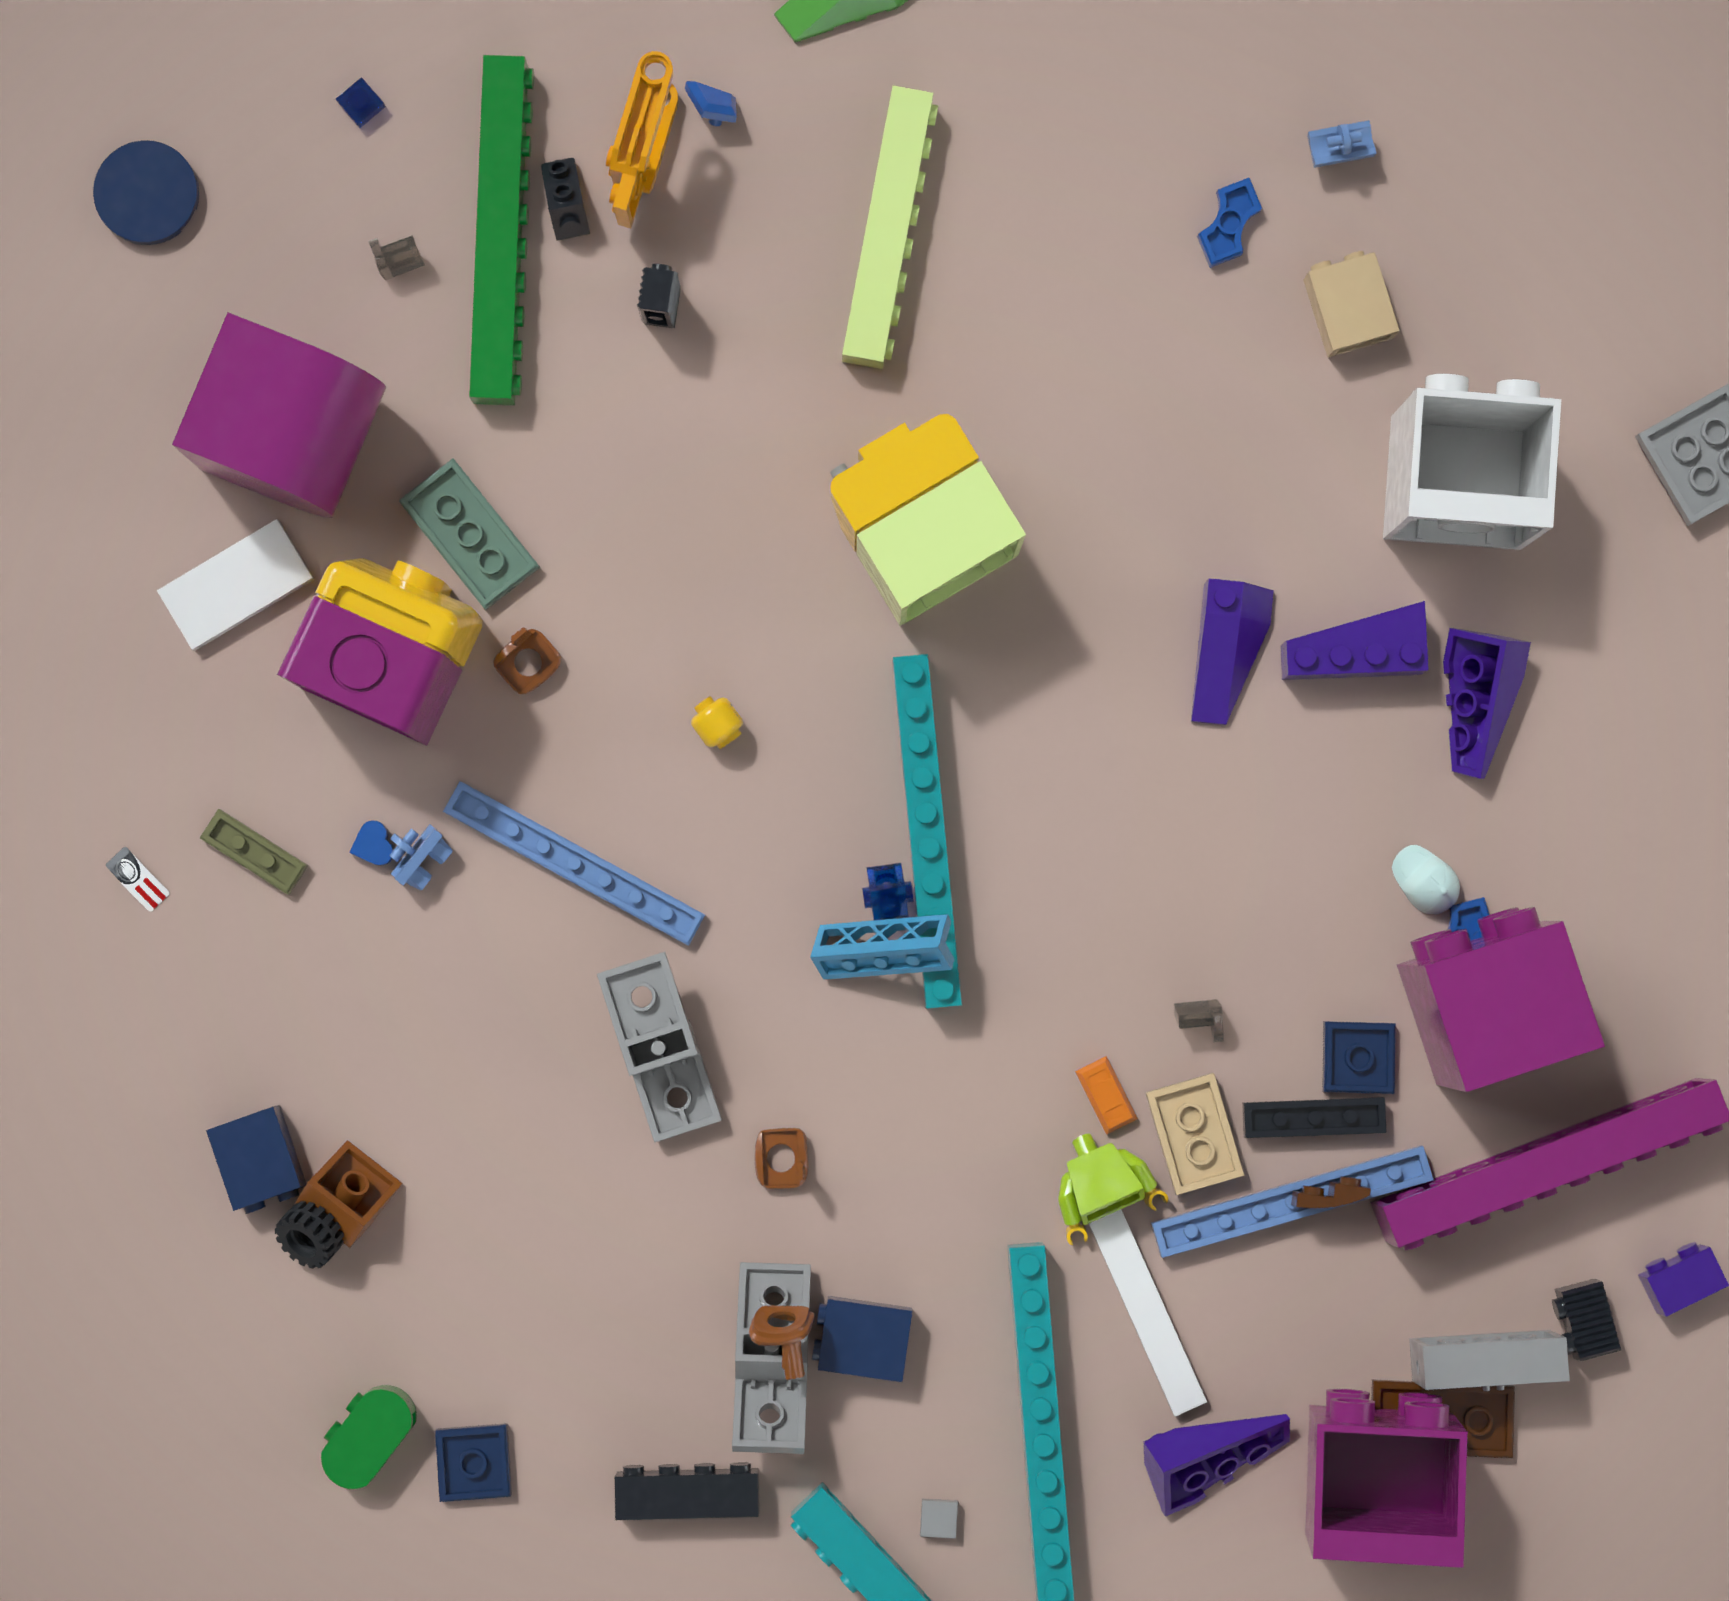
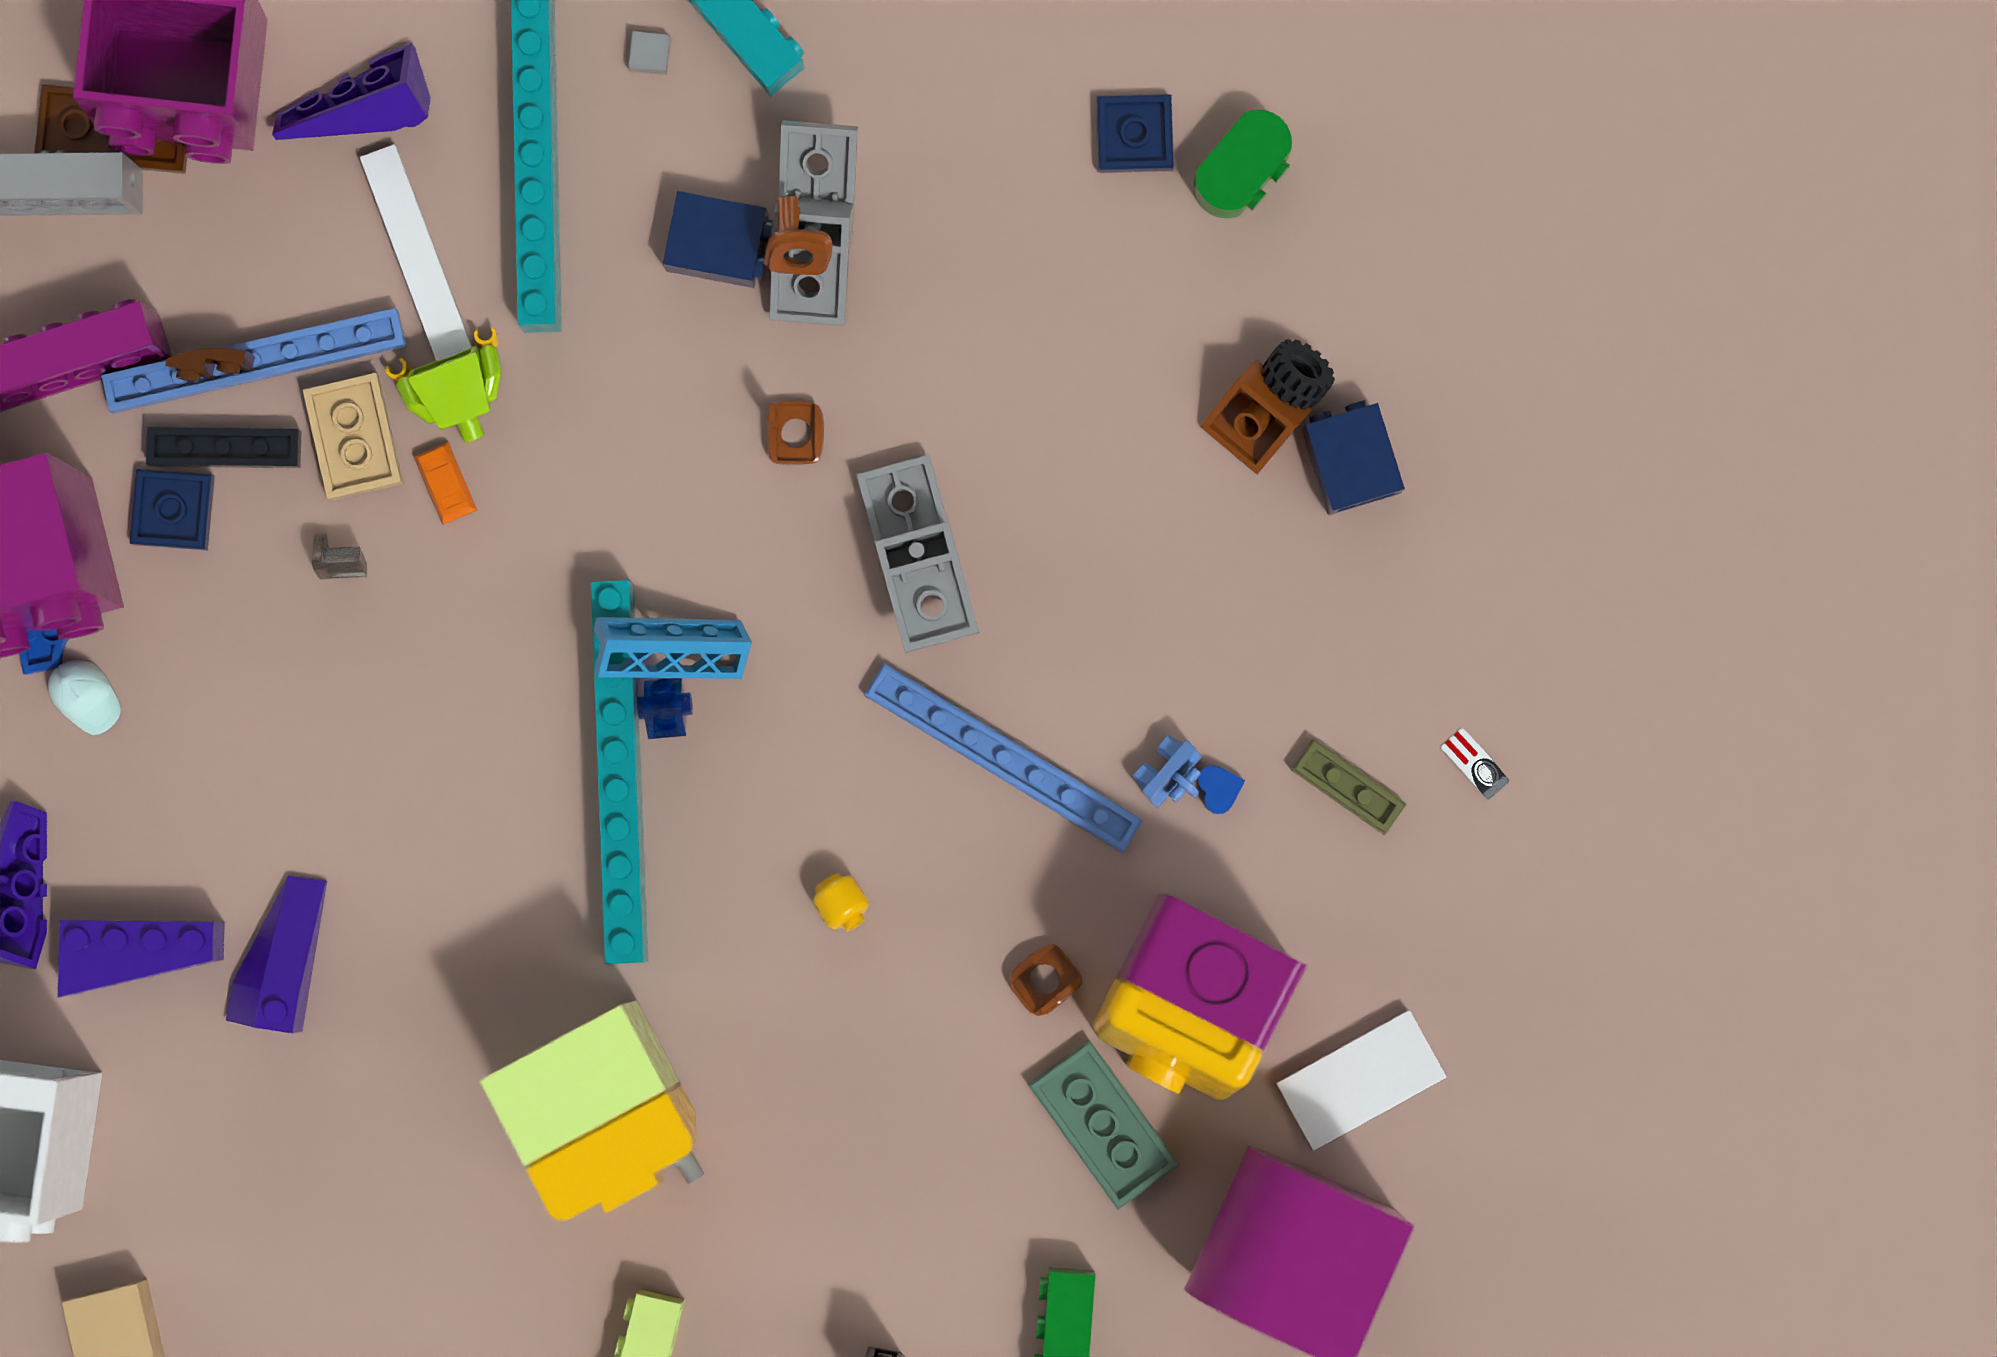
camera: 175 degrees left, 0 degrees up
(687, 1493) = (910, 90): black brick -> none

